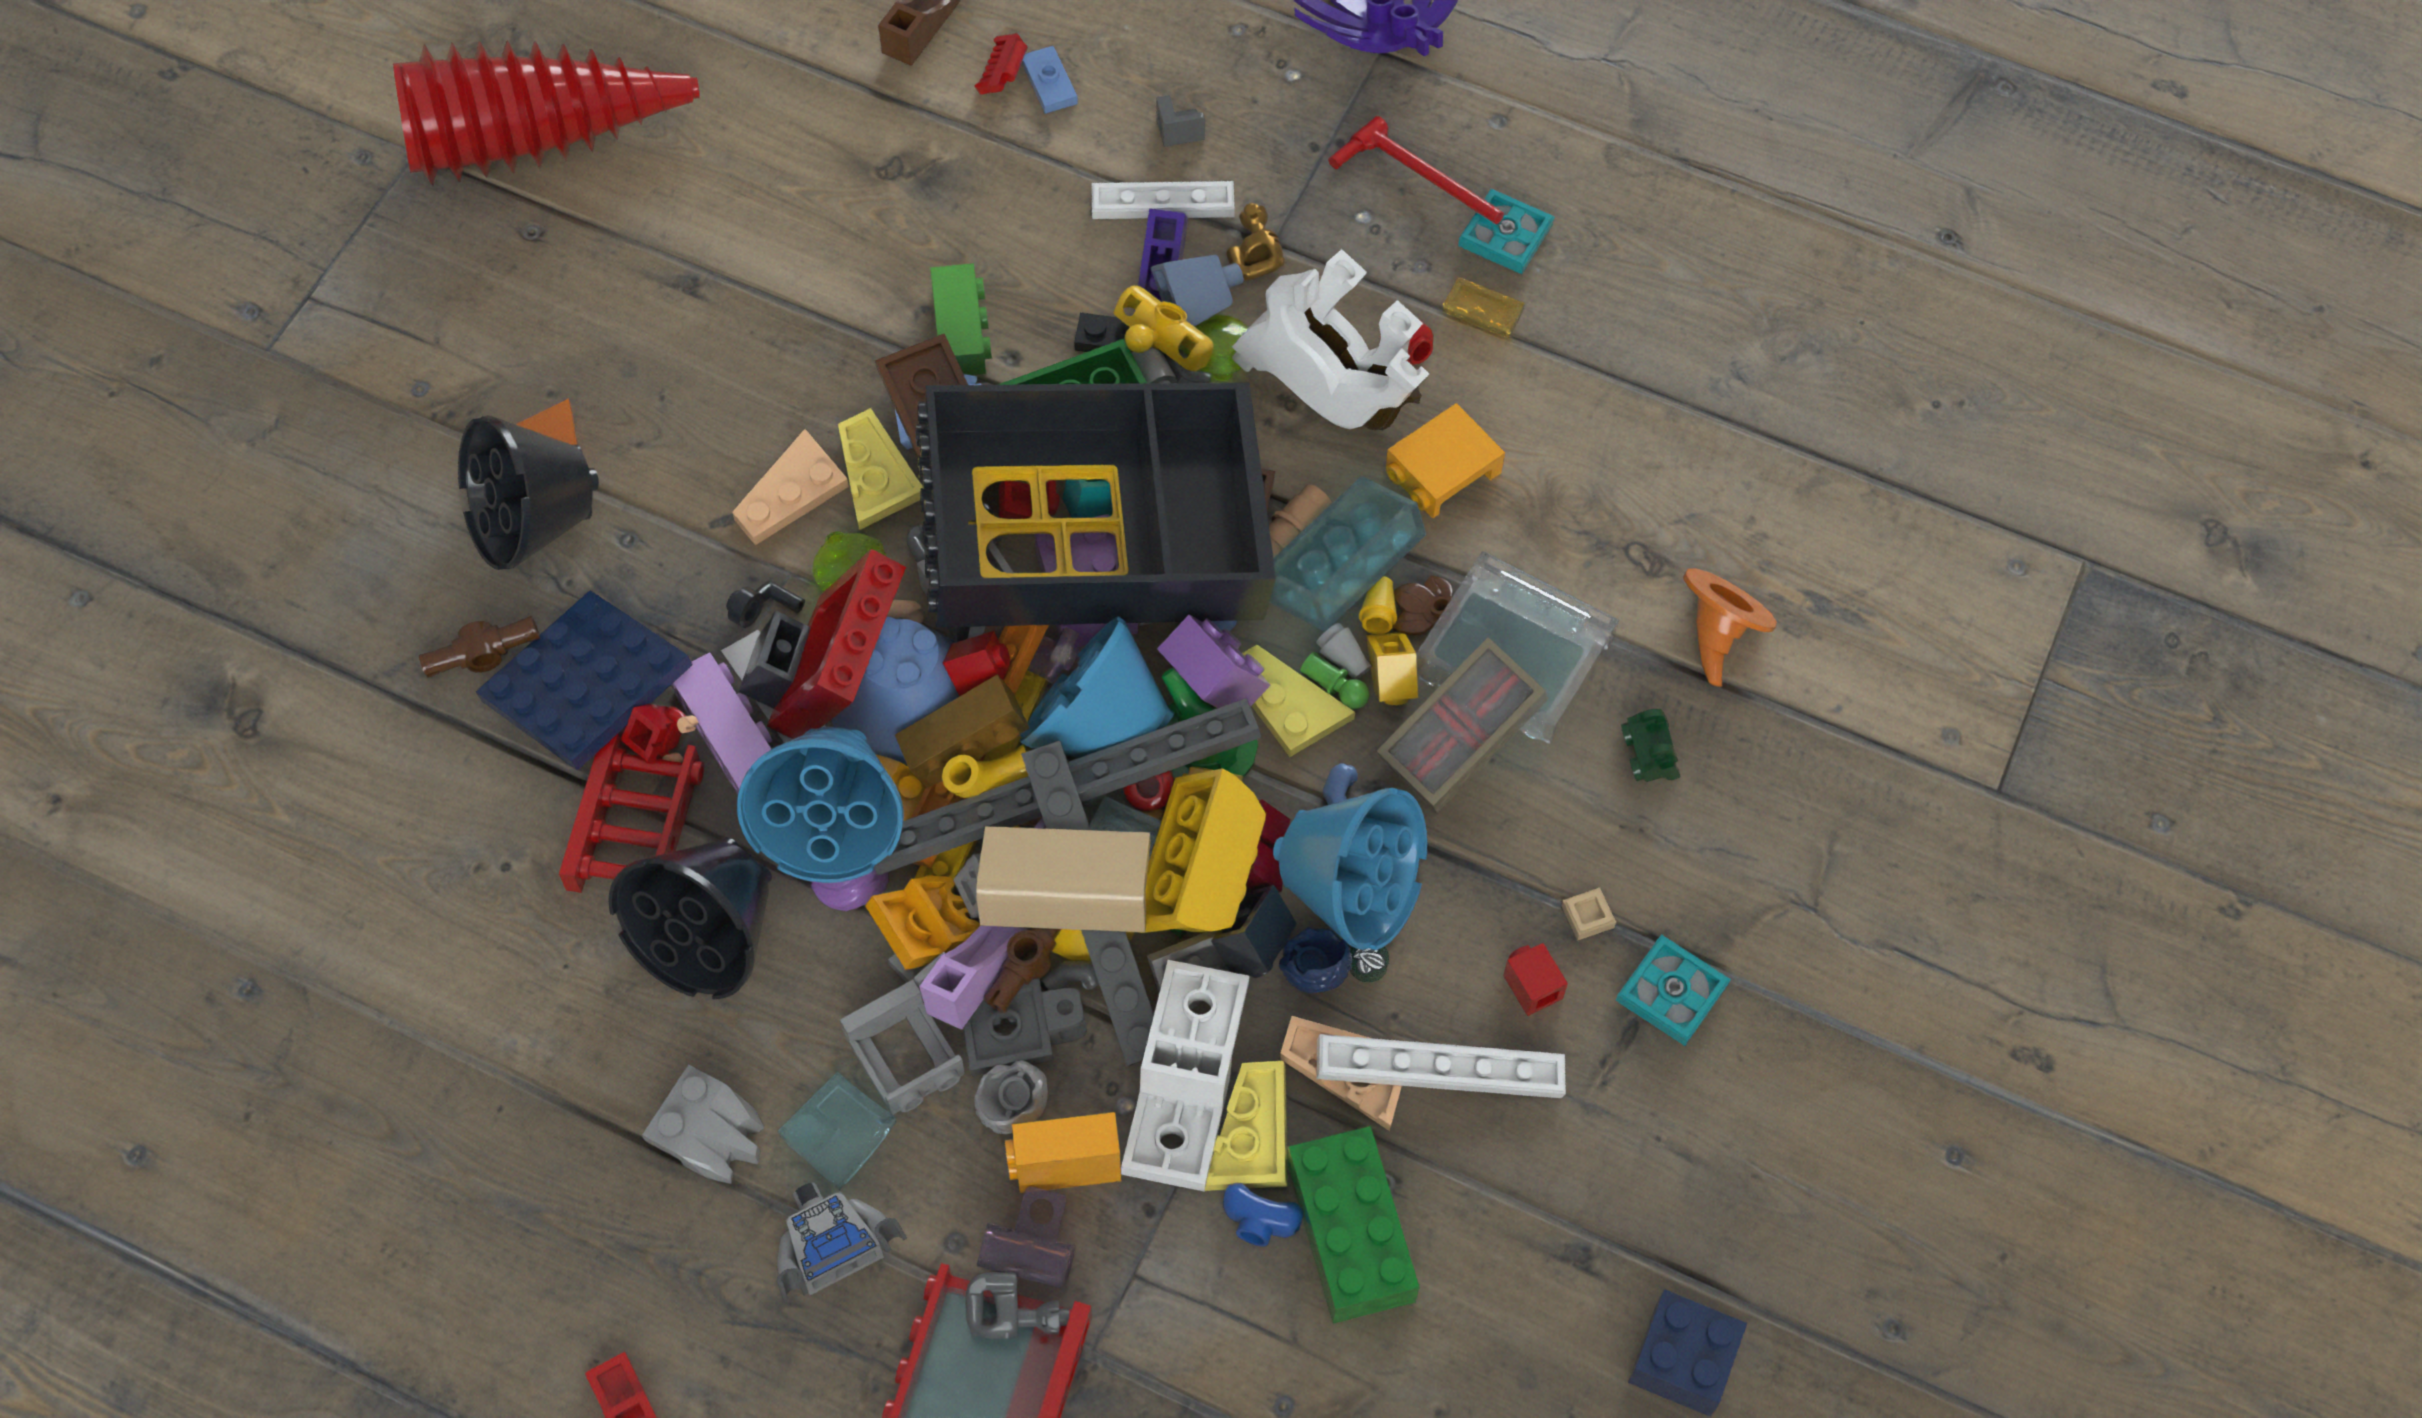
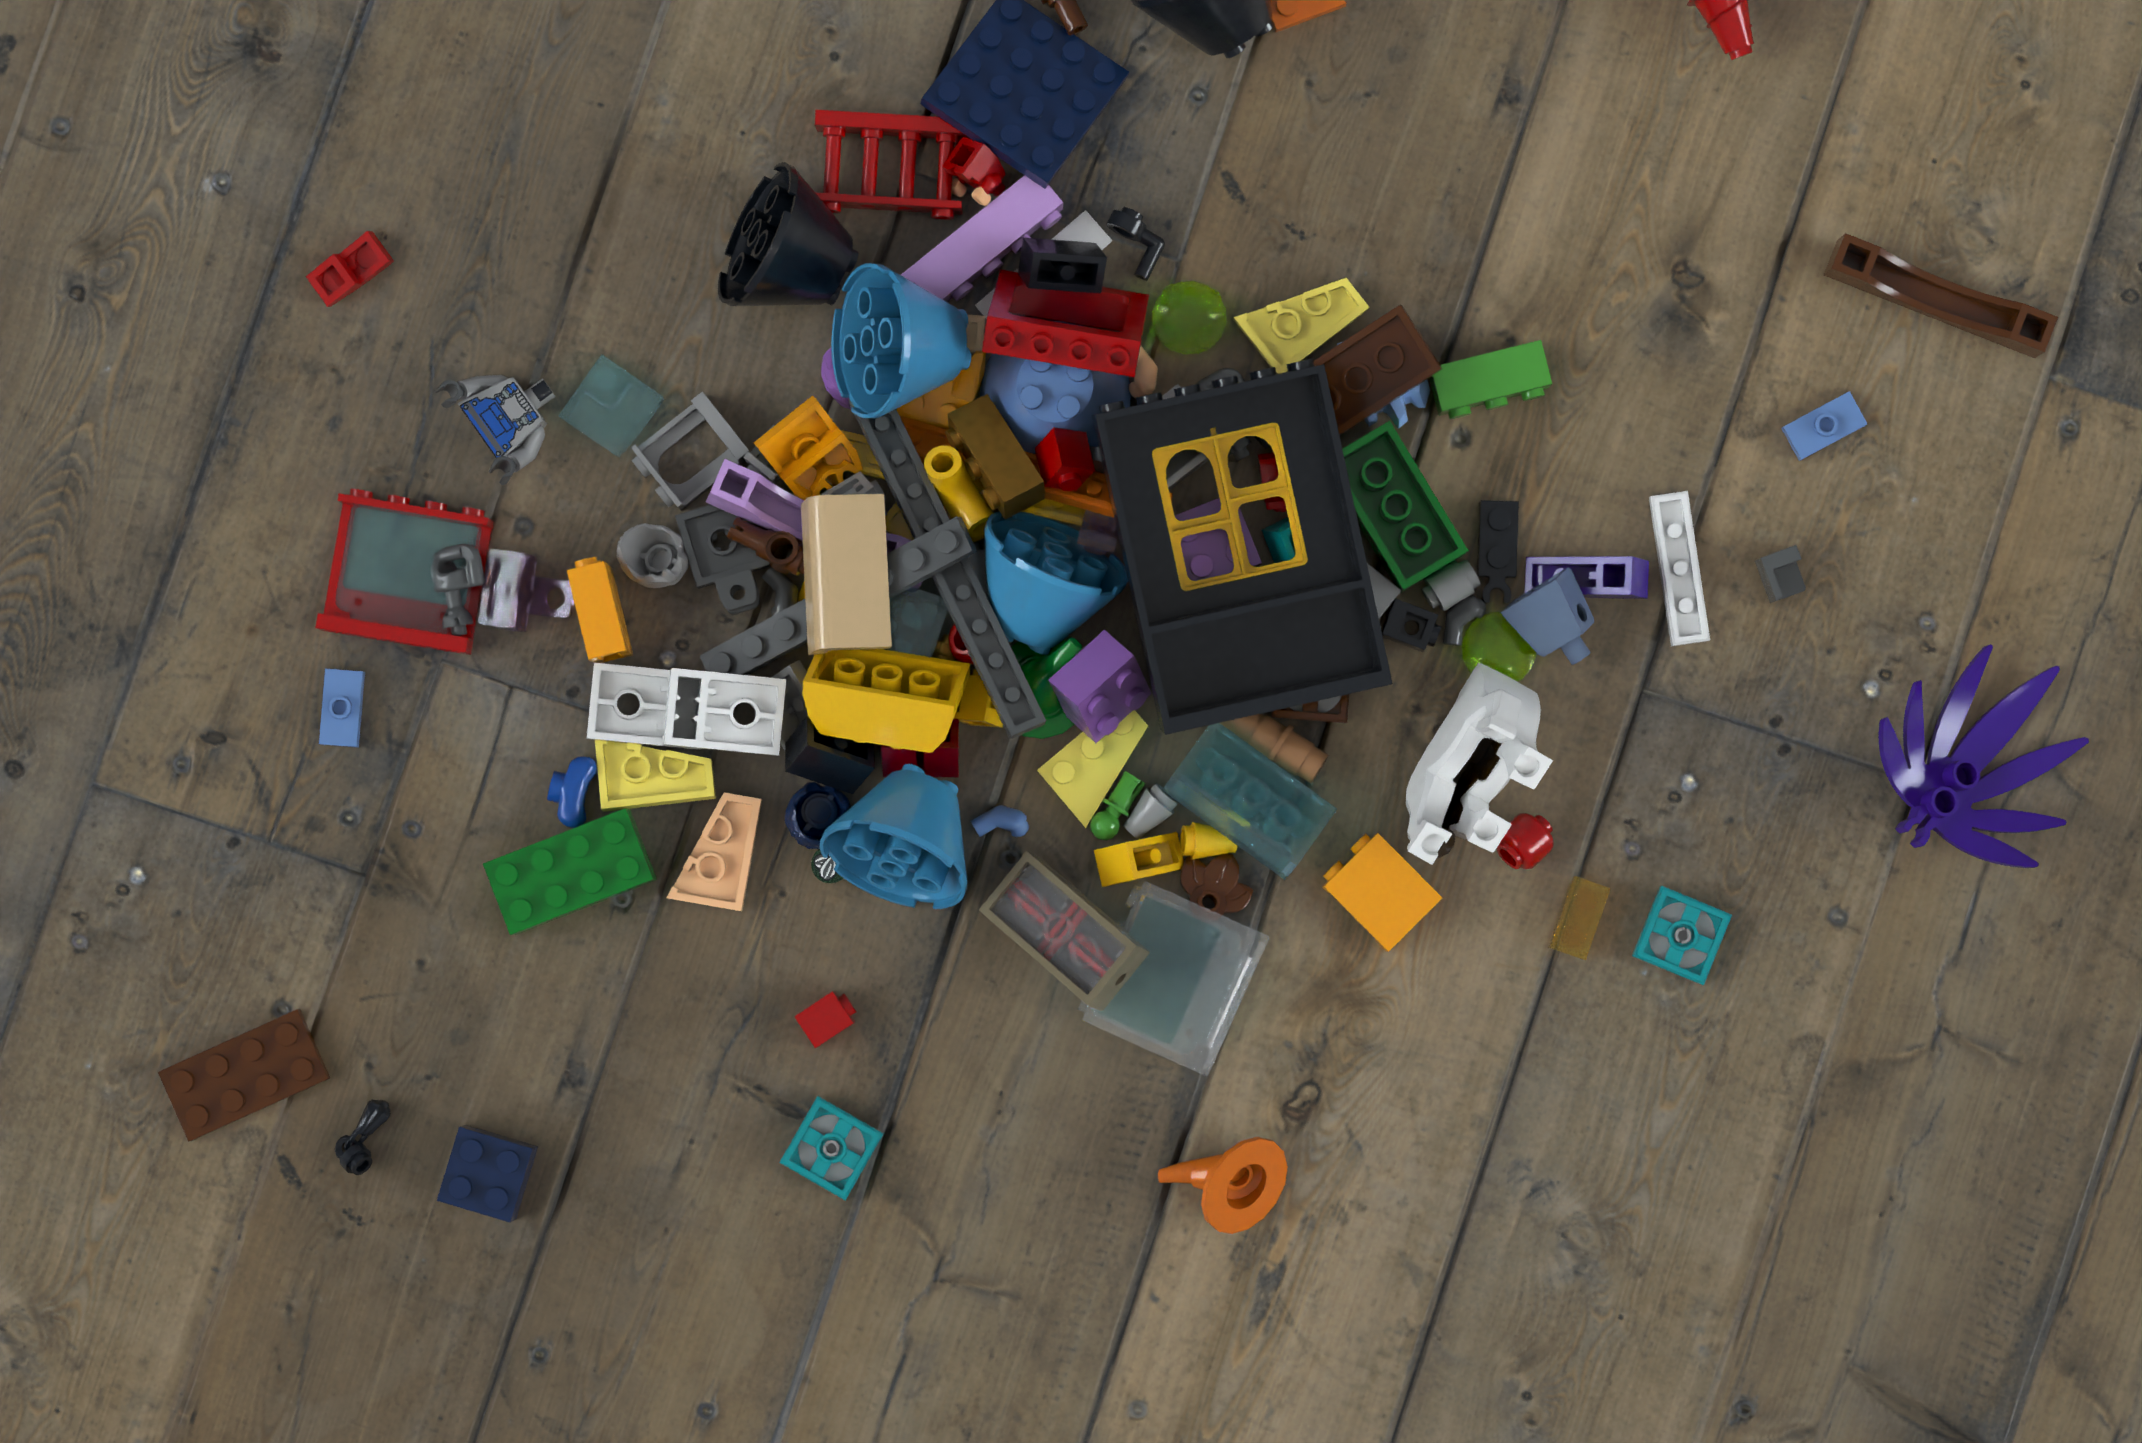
camera: 85 degrees right, 25 degrees up
(705, 1126) = (599, 290): light grey plate -> none
(789, 489) = (1272, 243): light nougat wing -> none
(1003, 63) = (1833, 379): red piece -> none
(1163, 328) = (1481, 596): yellow piece -> none
(1260, 248) = (1627, 679): pearl gold piece -> none
(1375, 135) = (1791, 783): red bar -> none
(1440, 1066) = (726, 938): white tile -> none
(1588, 914) = (903, 1066): tan tile -> none
(1652, 745) = (1081, 1115): dark green piece -> none

